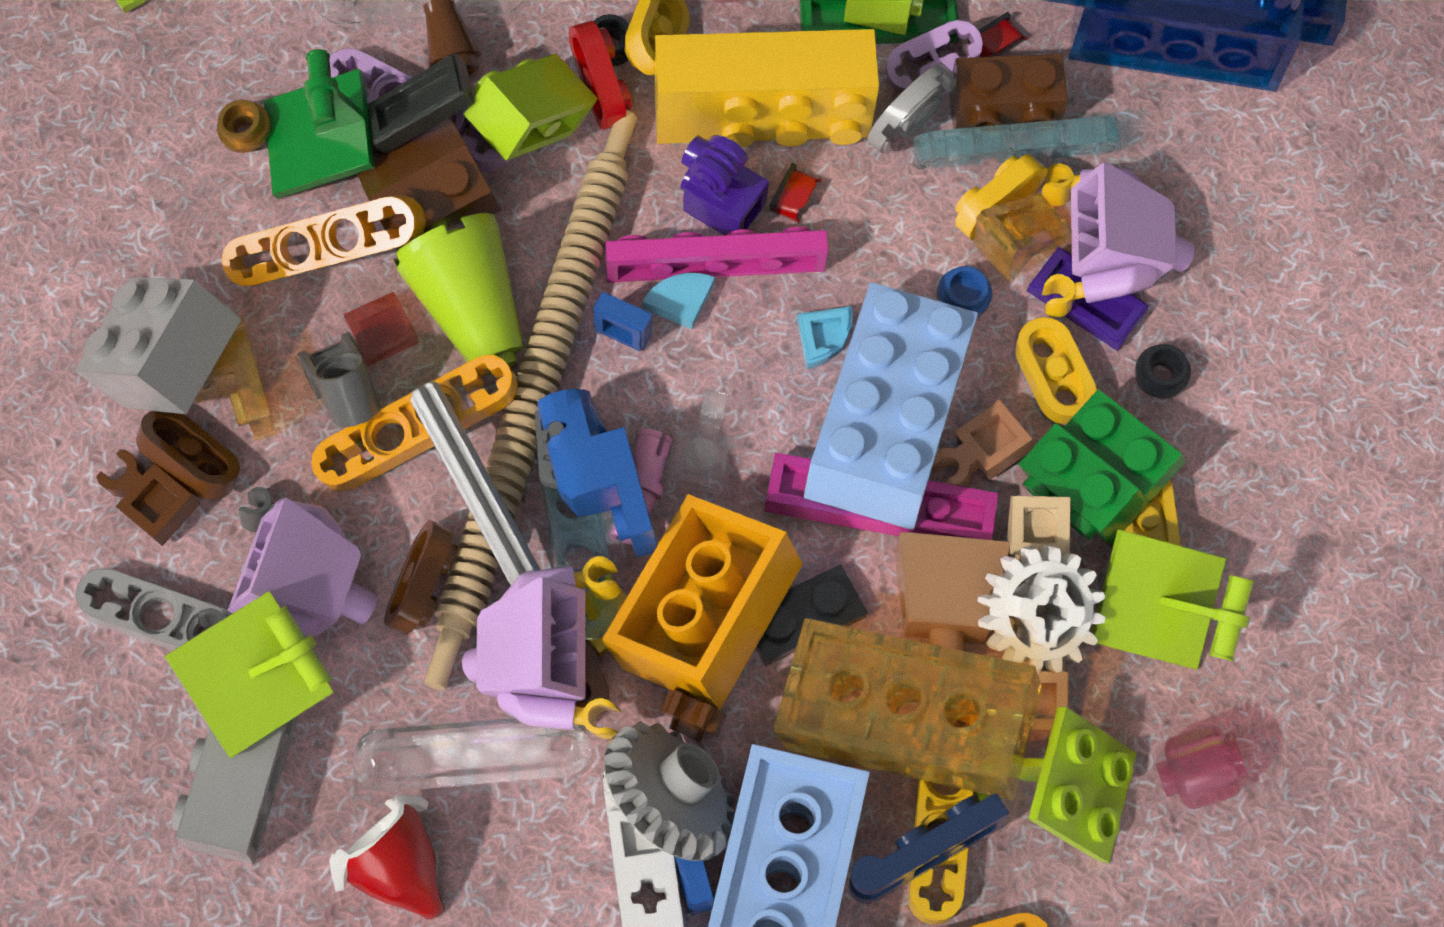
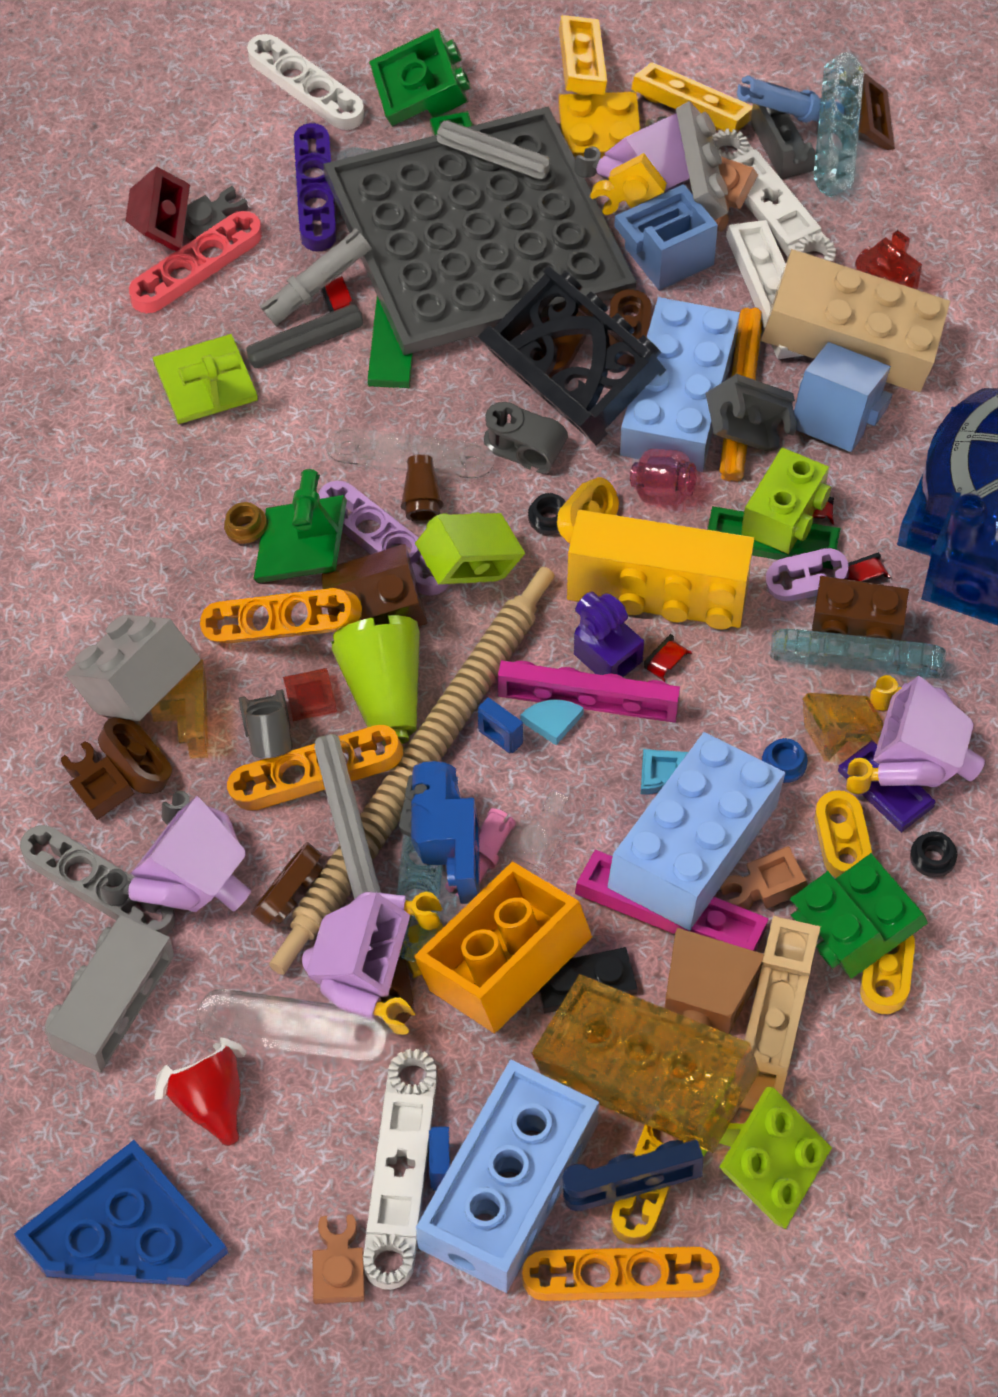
camera: 20 degrees right, 10 degrees down
(251, 673) = (134, 918): lime plate -> none
(420, 103) = (383, 529): pearl dark grey tile -> none
(593, 55) = (530, 518): red plate -> none
(669, 791) = (435, 1082): light grey gear -> none
(692, 716) = (472, 1033): reddish brown plate -> none
(912, 107) = (775, 606): light grey tile -> none
(1012, 181) = (847, 679): yellow plate -> none
(1045, 584) = (782, 990): white gear -> none
(1164, 601) = (882, 1029): lime plate -> none
(1202, 767) = (881, 1167): clear pink head -> none

